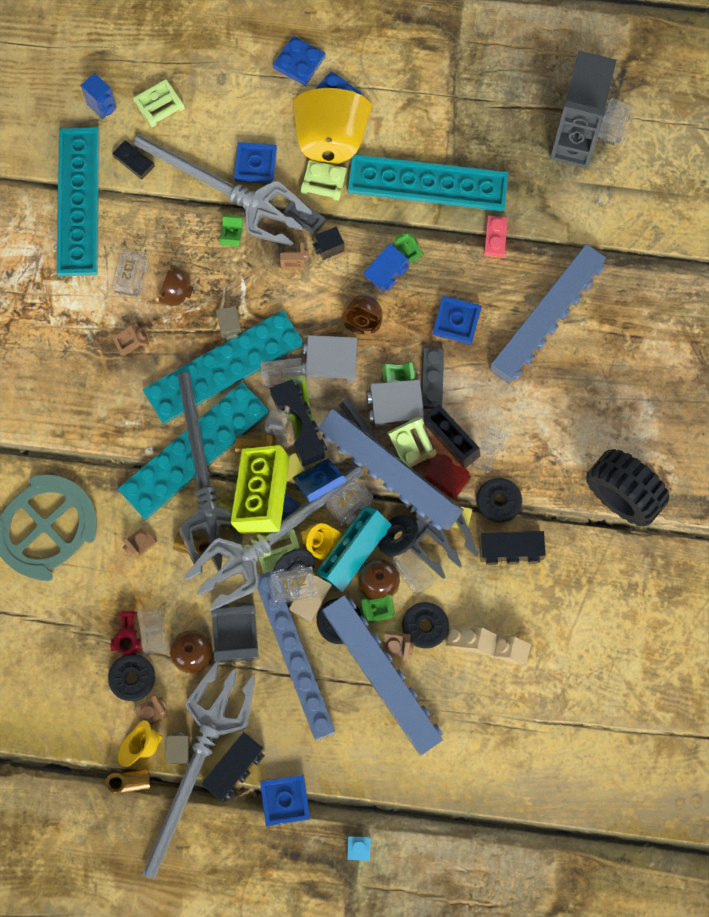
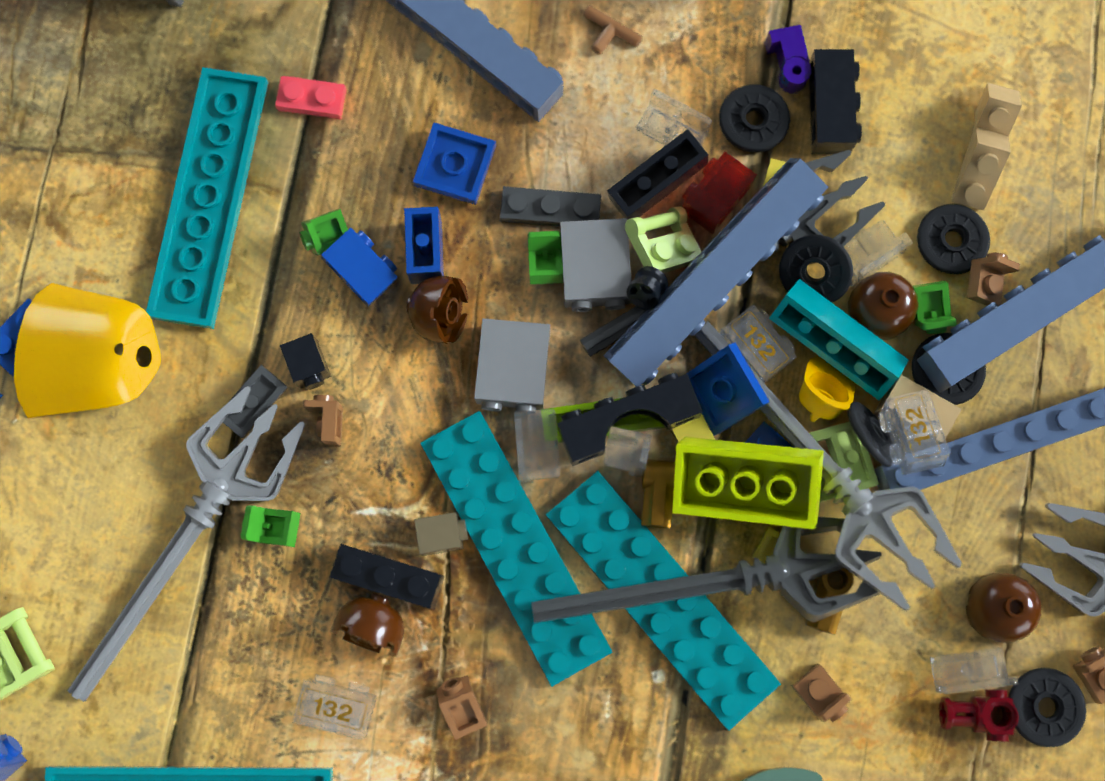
camera: 85 degrees left, 5 degrees up
(133, 159) = (114, 702): black plate -> none
(203, 295) = (387, 576): none -> black brick
(235, 633) = (982, 534): dark grey panel -> none
(255, 163) = (143, 482): blue plate -> none
(325, 175) = (178, 363): yellowish green plate -> none
(378, 430) = (647, 287): none -> black wheel
(401, 303) = (423, 243): none -> blue brick
(541, 521) = (791, 55): none -> dark purple leg
(554, 410) = (611, 28): none -> medium nougat piece

